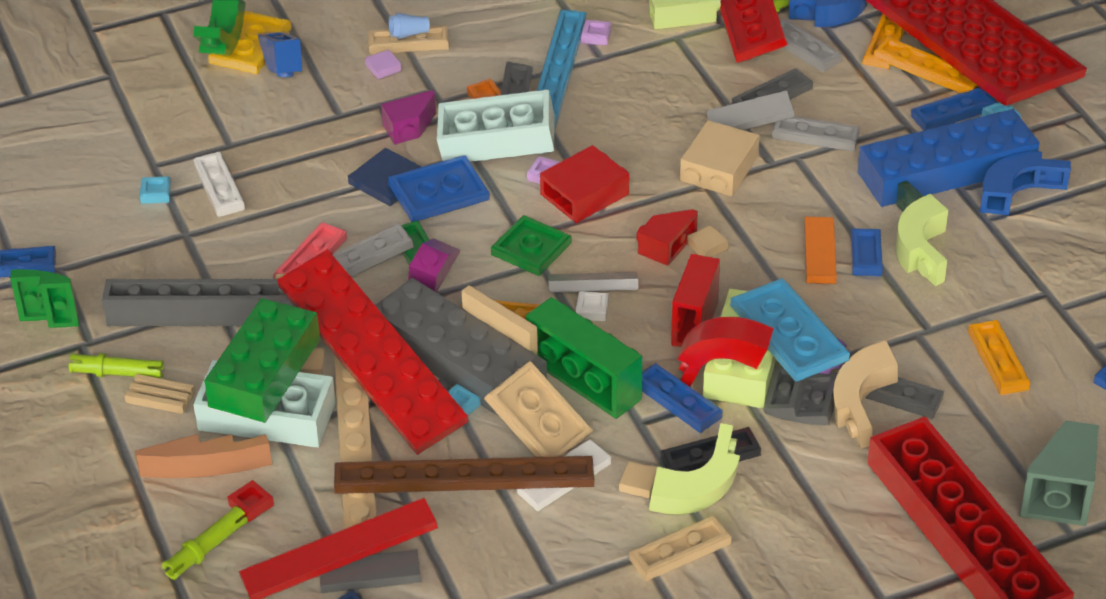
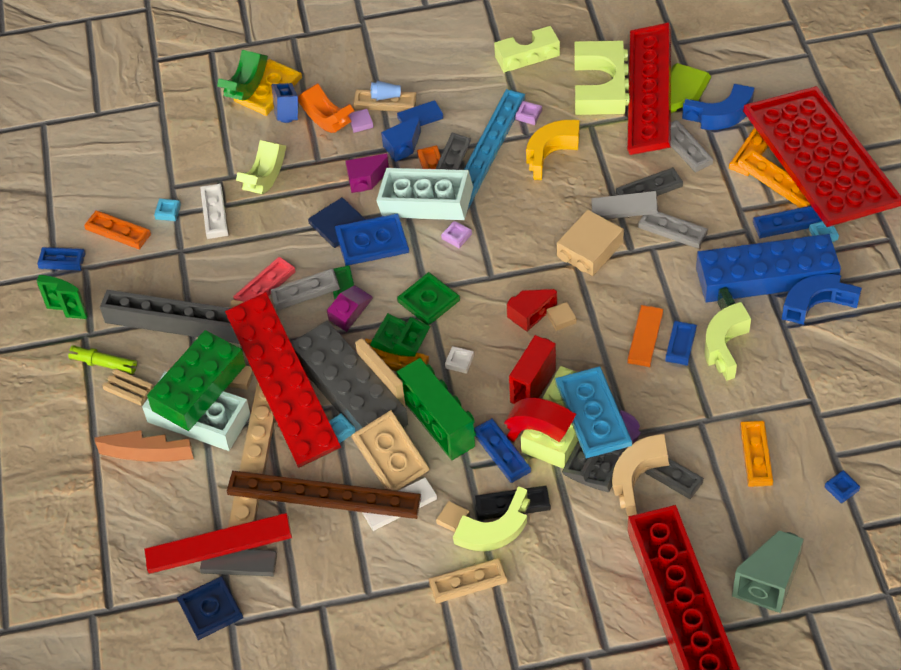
camera: 15 degrees right, 10 degrees up
(93, 220) = (117, 229): none -> orange tile
(195, 550) = (126, 520): lime pin -> none
(251, 500) = (168, 489): red plate -> none
(276, 124) = (265, 168): none -> yellowish green arch
(334, 59) = (323, 111): none -> orange arch
(443, 75) = (402, 138): none -> blue slope
(458, 50) = (426, 112): none -> blue tile
(511, 290) = (400, 336): none -> green slope
(584, 183) = (481, 251): red brick -> none
(593, 282) = (464, 339): light grey tile -> none
(634, 54) = (550, 138): none -> yellow arch

